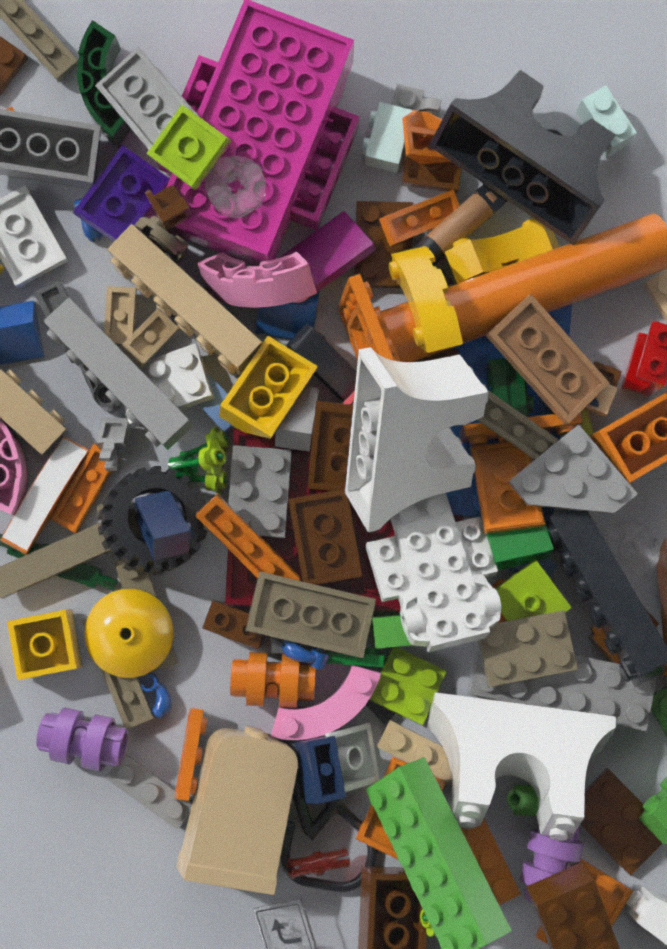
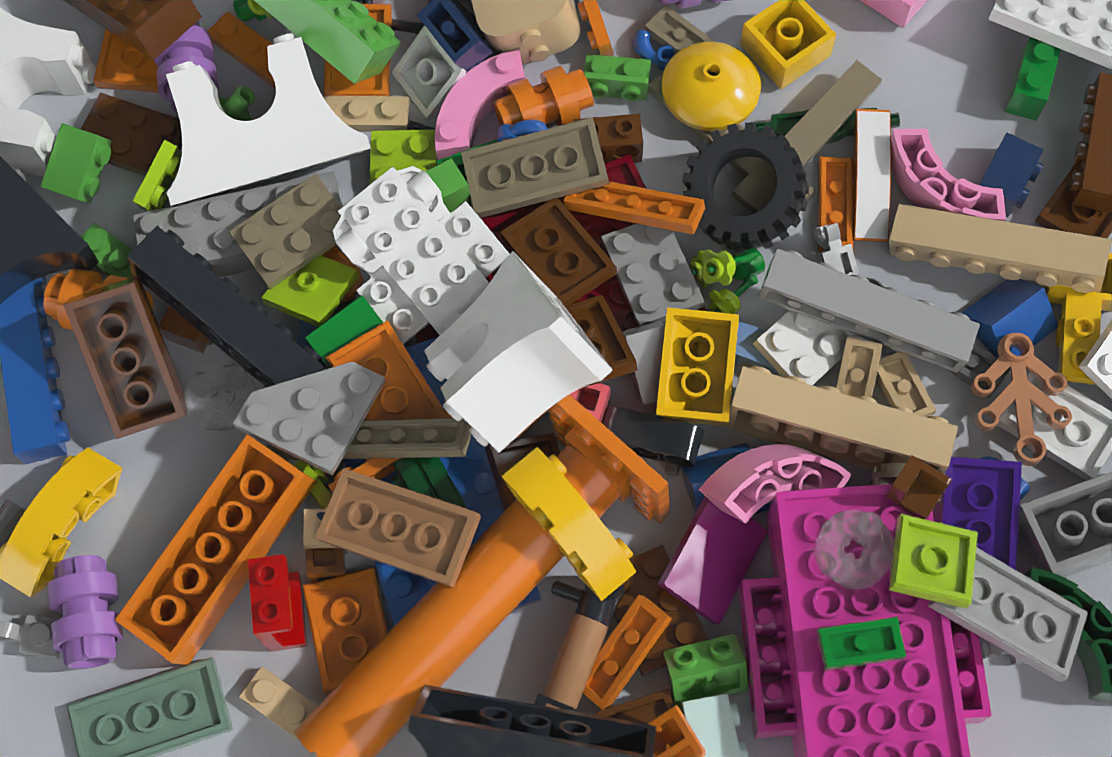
camera: 160 degrees right, 15 degrees down
(40, 266) = (1022, 393): none -> nougat plant
(162, 525) = (732, 172): dark blue brick -> none
(198, 684) = (617, 77): none -> bright green bracket
(268, 119) = (861, 643): none -> green plate
(369, 183) = (706, 669): none -> bright green bracket
(479, 256) = (522, 638): yellow brick -> none
(605, 327) = (344, 622): none -> orange tile
(606, 757) = (163, 170): none -> lime plate

